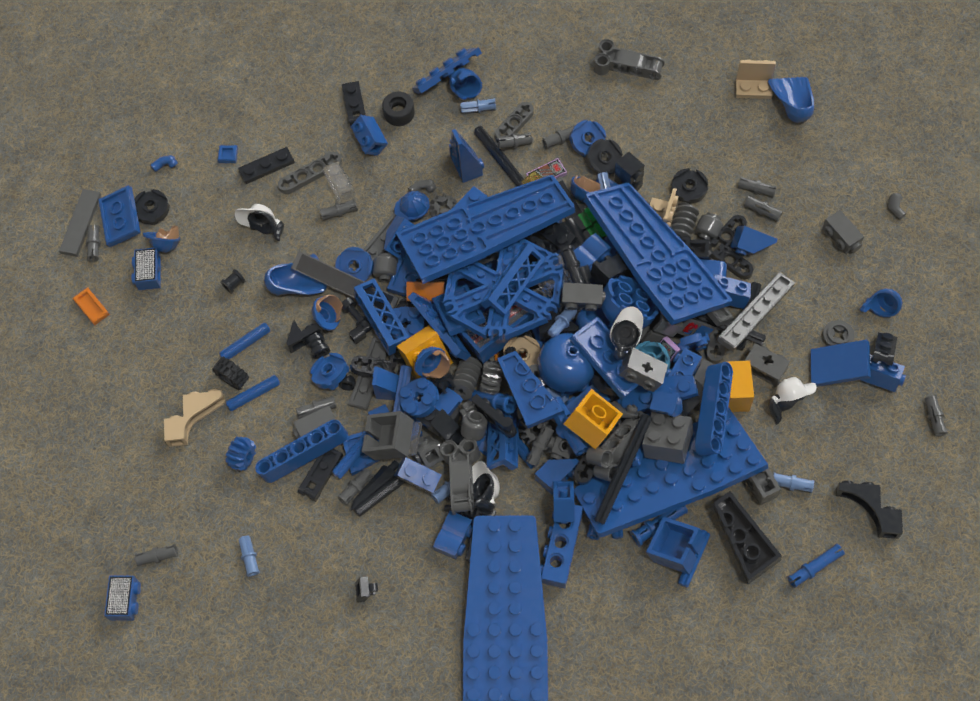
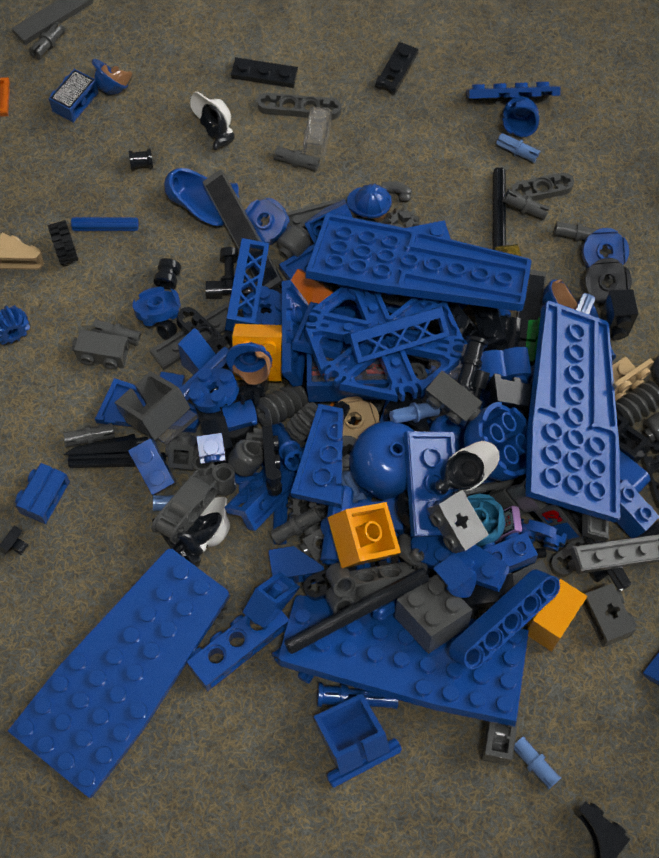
camera: 30 degrees right, 0 degrees up
(119, 216) = (90, 31): blue tile -> none
(160, 208) = (125, 51): black plate -> none
(162, 161) = (172, 7): blue arm -> none
(227, 153) = (237, 39): blue tile -> none
(252, 392) = (71, 277): blue axle -> none
(290, 456) = (65, 363): blue beam -> none
(298, 338) = (155, 250): black slope -> none
(320, 474) = (67, 397): black plate -> none
(327, 311) = (201, 247): blue piece -> none
(349, 459) = (101, 403): blue axle -> none
(357, 544) = (42, 493): none -> blue brick
(369, 135) = (384, 105): blue brick -> none
(402, 117) = (431, 109): black tyre -> none
(450, 435) = (211, 448): none -> brick
(453, 535) = (138, 553): blue brick -> none
(464, 158) = (459, 187): blue wedge -> none
(552, 168) = (541, 259): tile -> none
(747, 540) = (431, 795): black wedge -> none
(787, 395) = (604, 664): white hair -> none

